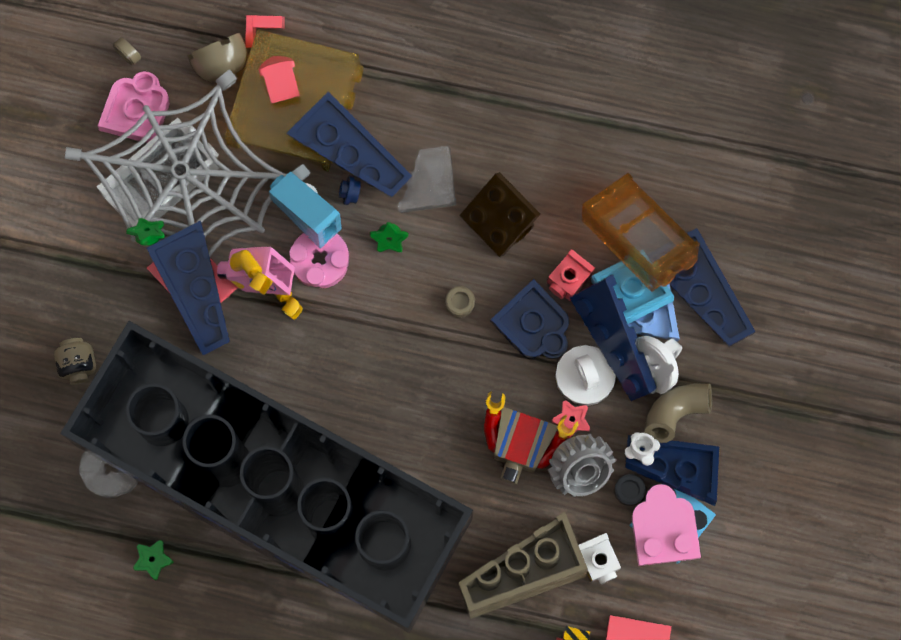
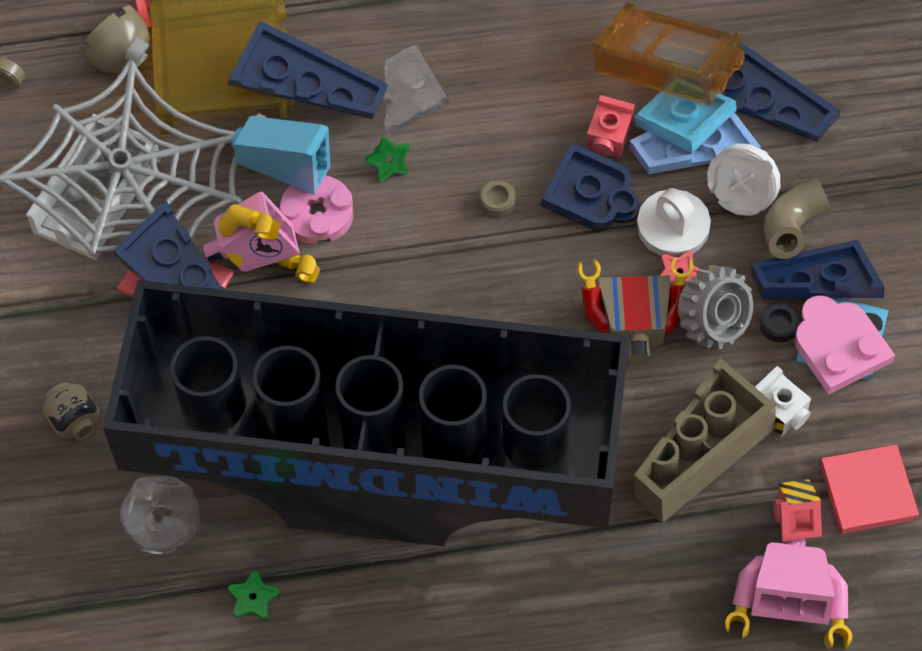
camera: 20 degrees left, 15 degrees down
(126, 105) = (28, 121): bright pink plate -> none
(147, 232) = (107, 234): green plate -> none
(279, 78) = (198, 32): coral tile -> none
(349, 190) = (325, 119): dark blue plate -> none
(500, 215) = (504, 91): dark brown plate -> none
(608, 327) = (677, 151): dark blue wing -> none
(646, 441) = (775, 264): white plate -> none

